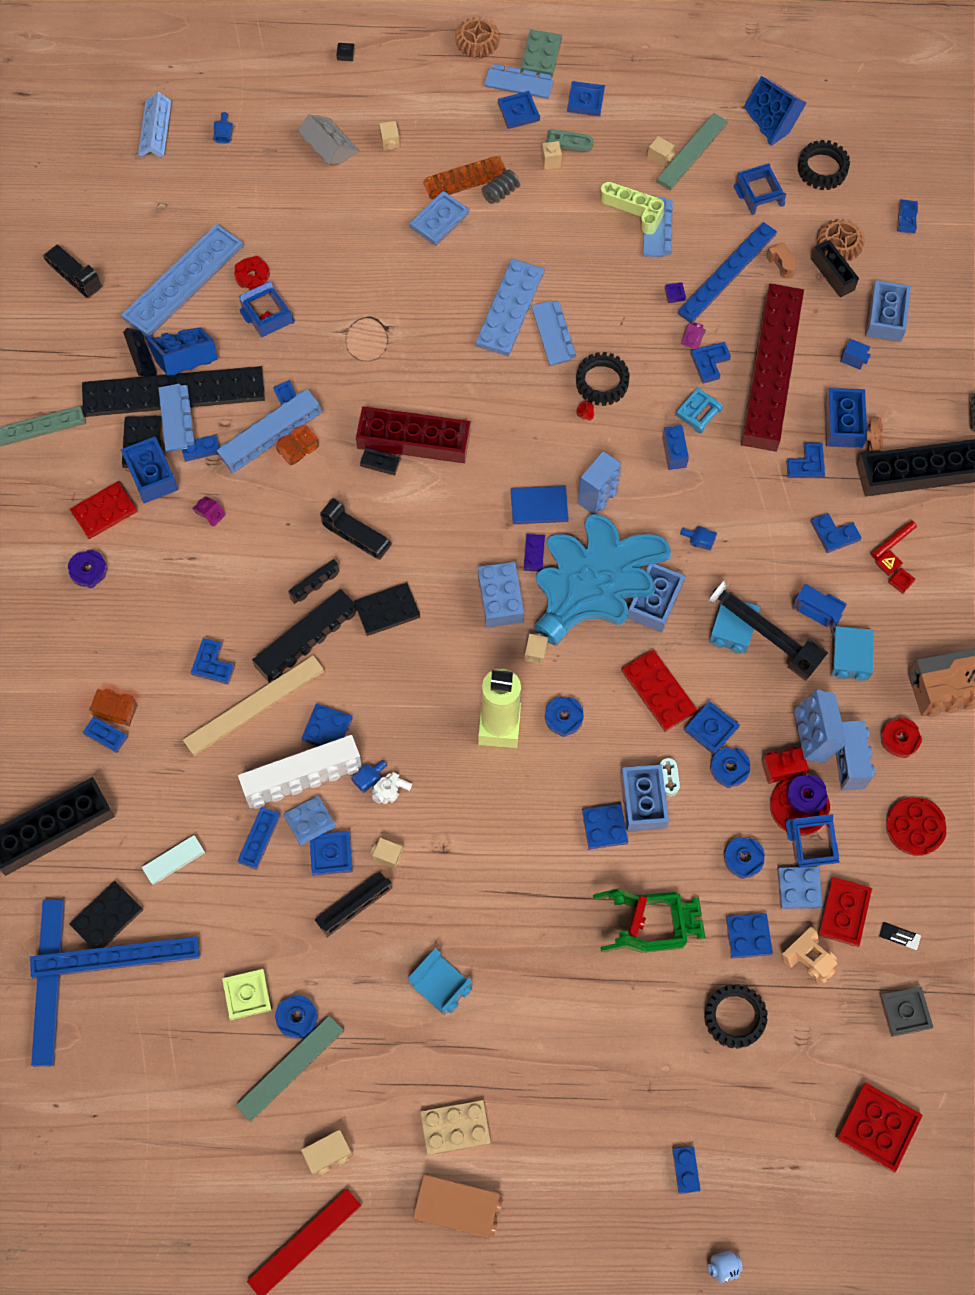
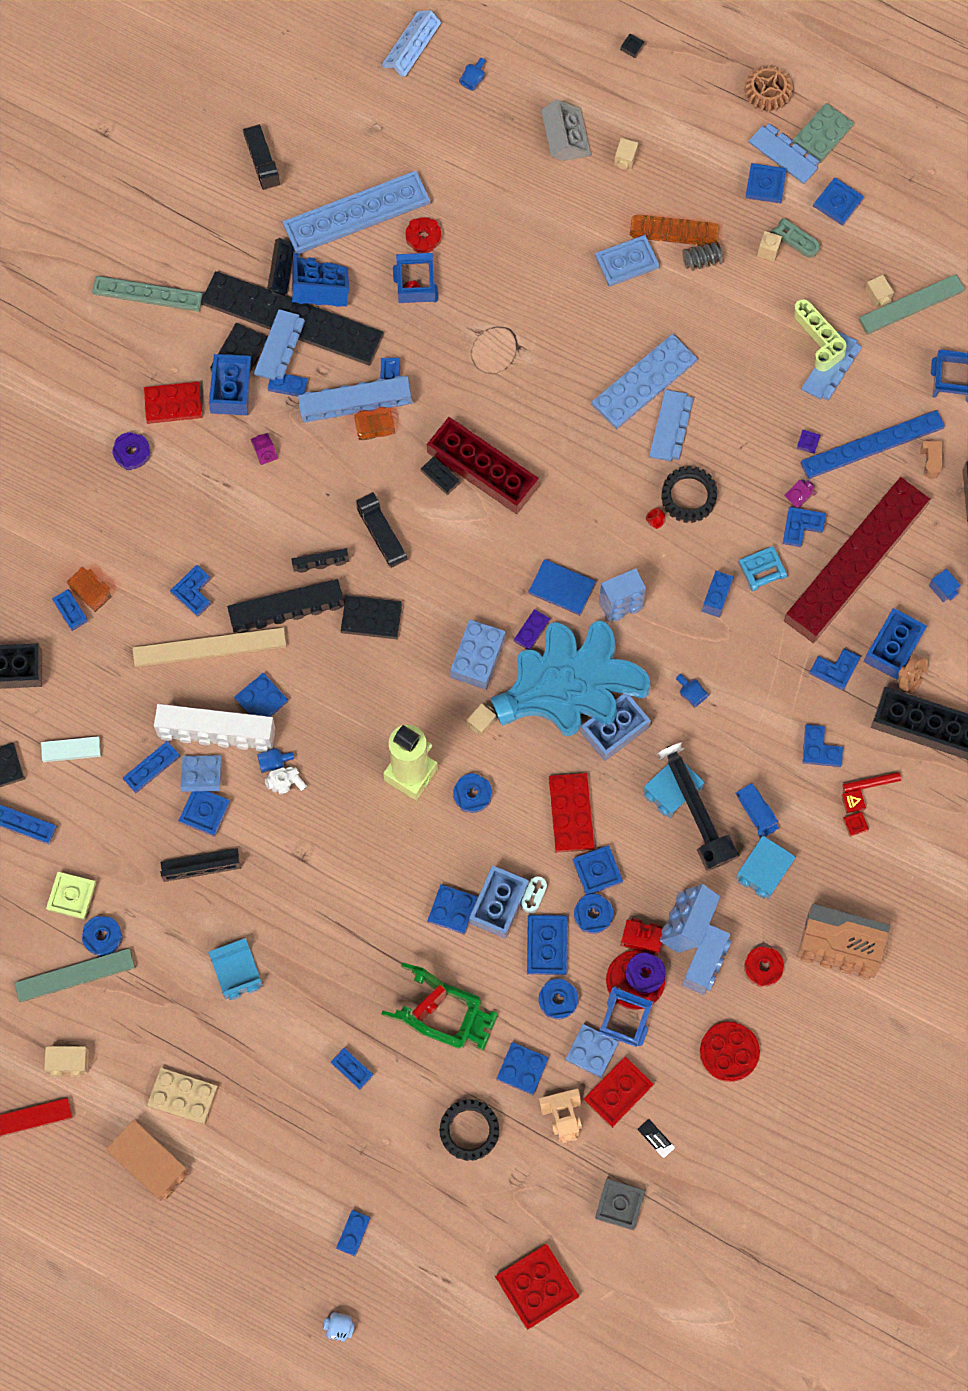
camera: 30 degrees right, 5 degrees up
(387, 853) = (251, 836): tan brick -> none
(598, 1017) = (352, 1069): none -> blue plate
(705, 815) = (547, 945): none -> blue tile

